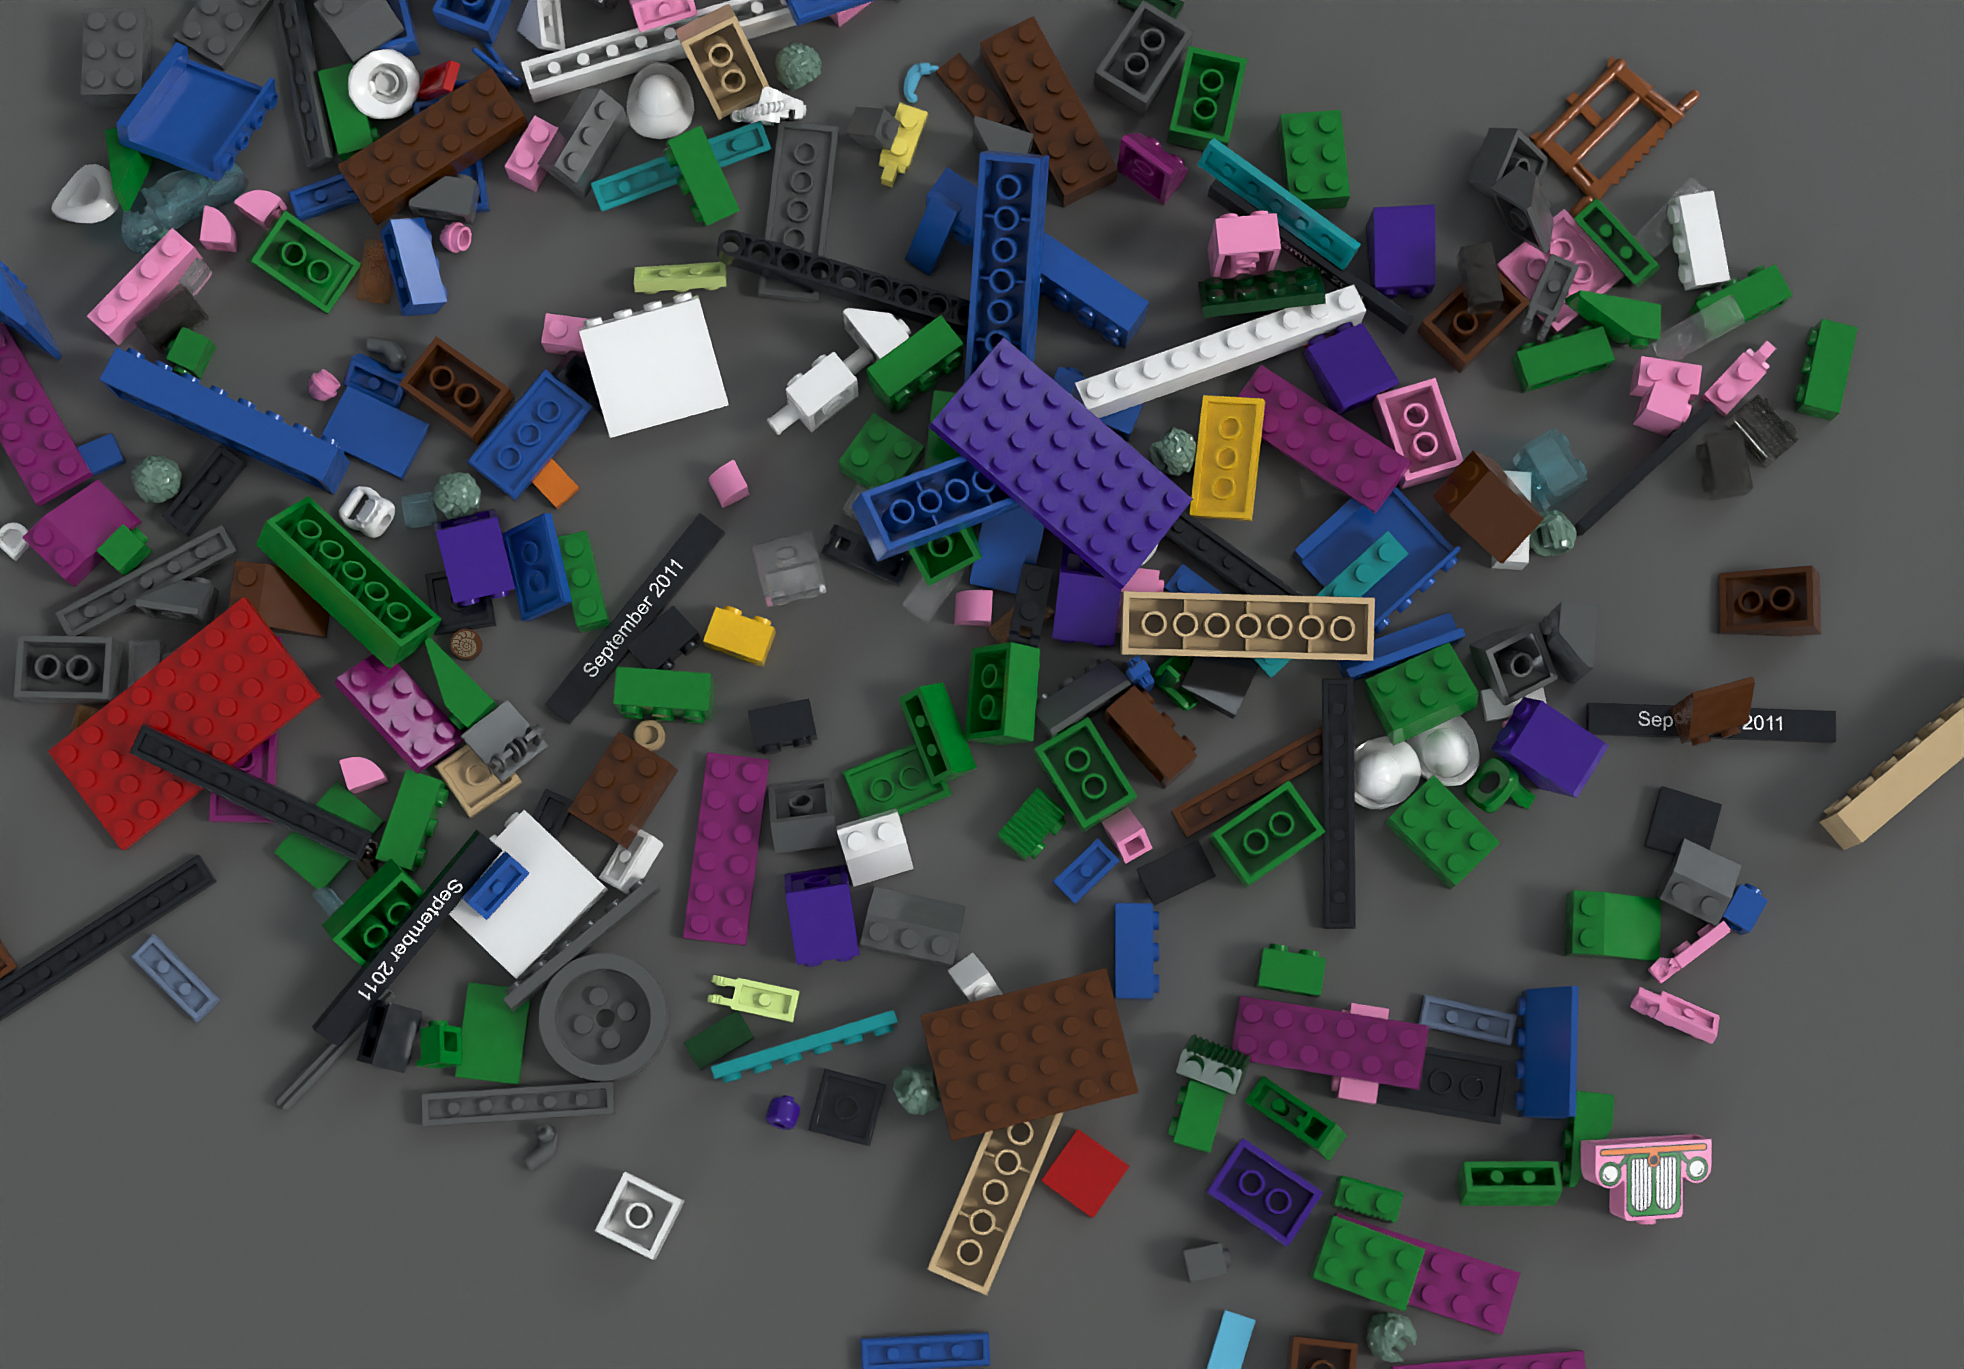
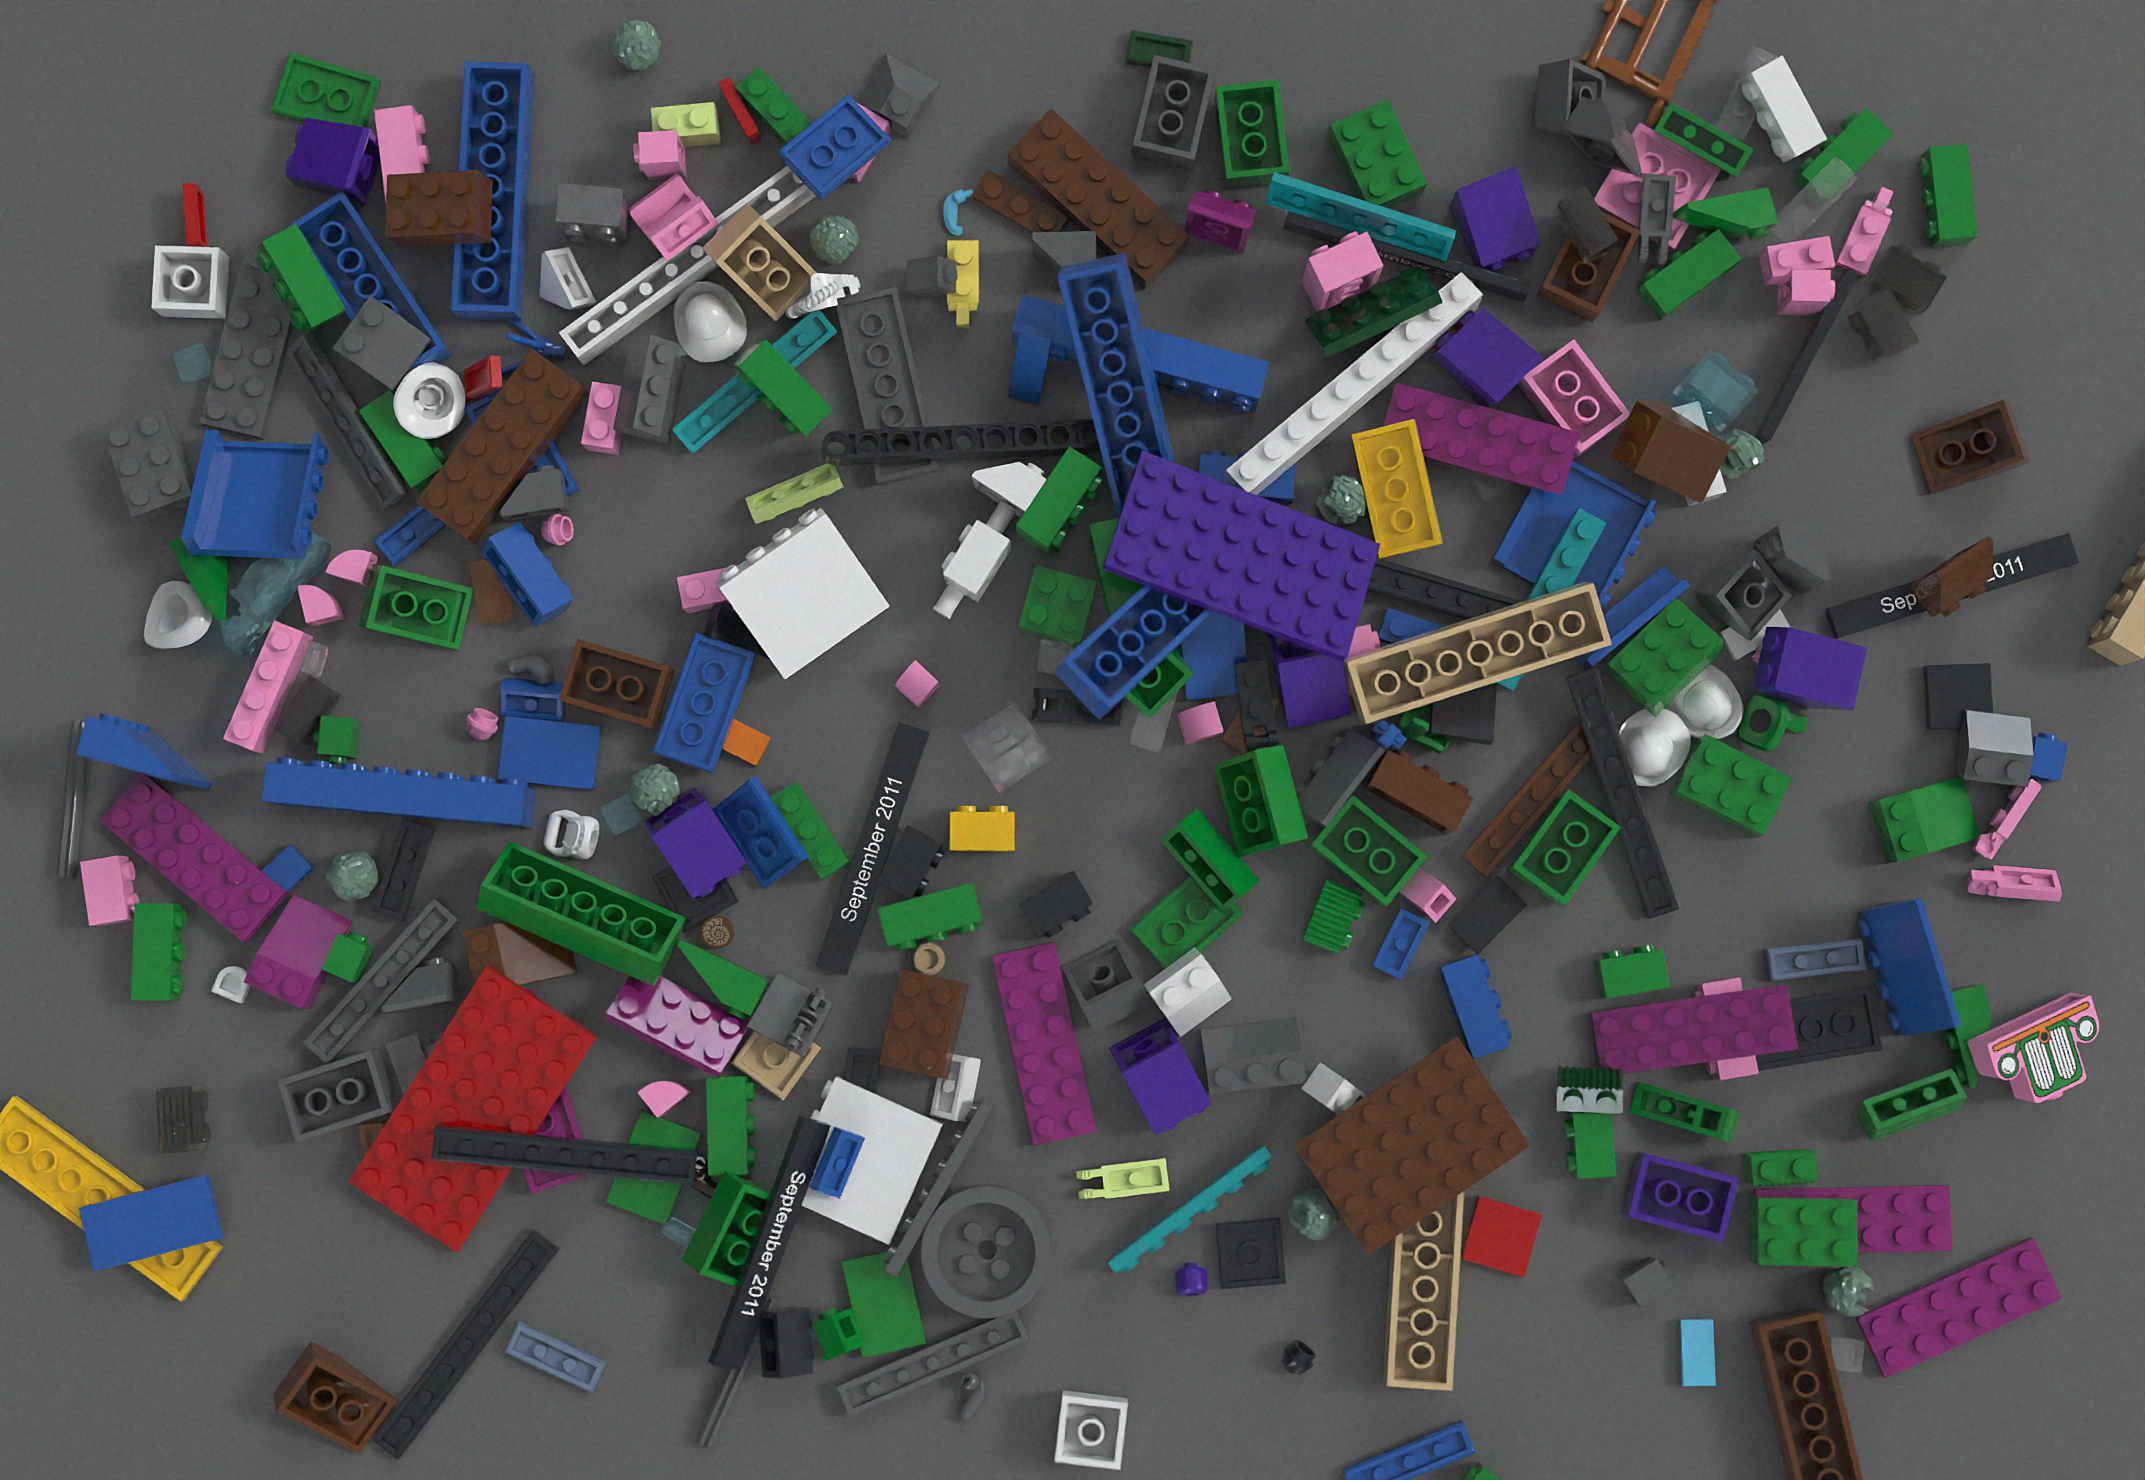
camera: 15 degrees left, 5 degrees up
(719, 1040) = (1104, 1232): dark green tile -> none
(856, 1218) = (1298, 1357): none -> black plate

